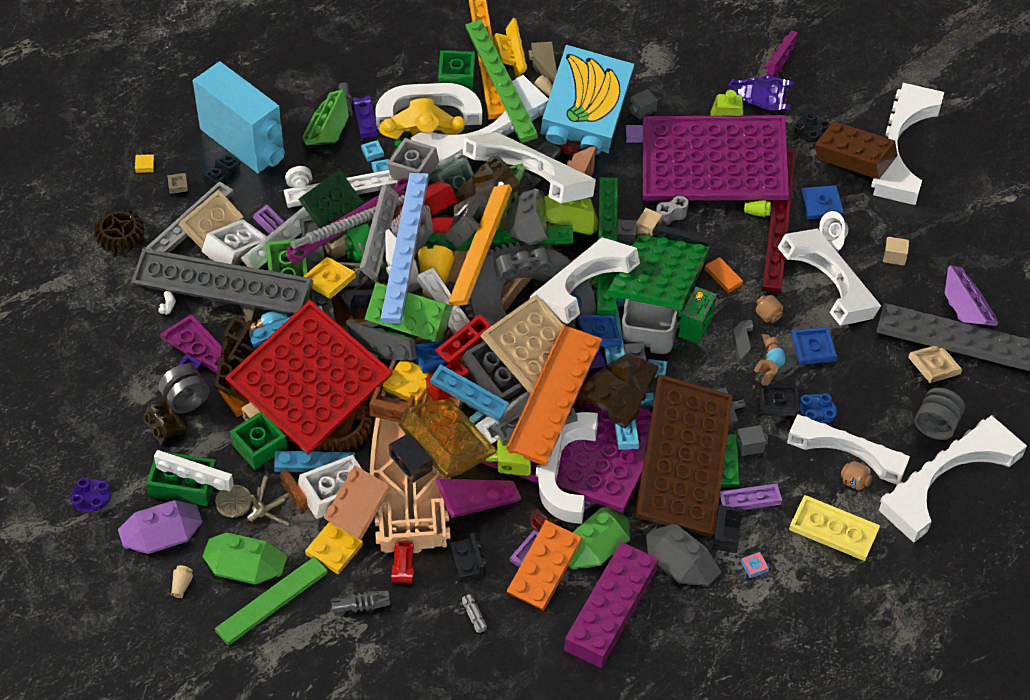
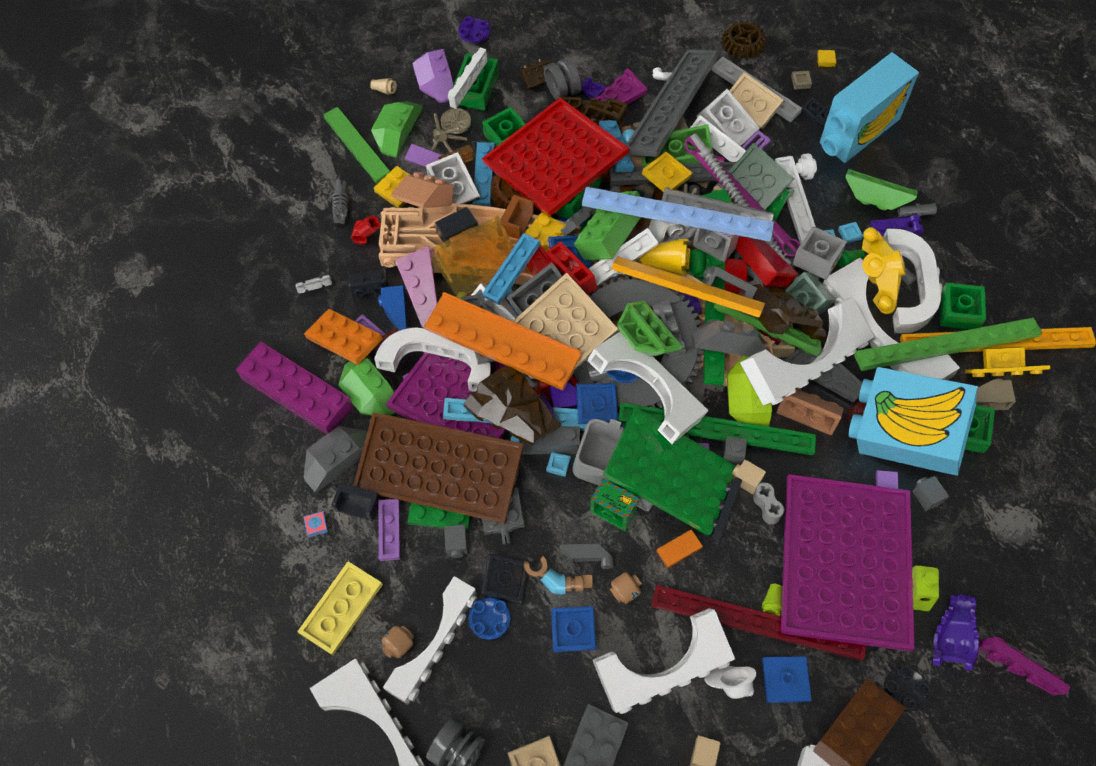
camera: 100 degrees right, 10 degrees up
(292, 525) = (421, 156): none -> medium lavender tile
(501, 524) = (394, 305): none -> blue slope
(538, 270) = (646, 330): none -> bright green wedge

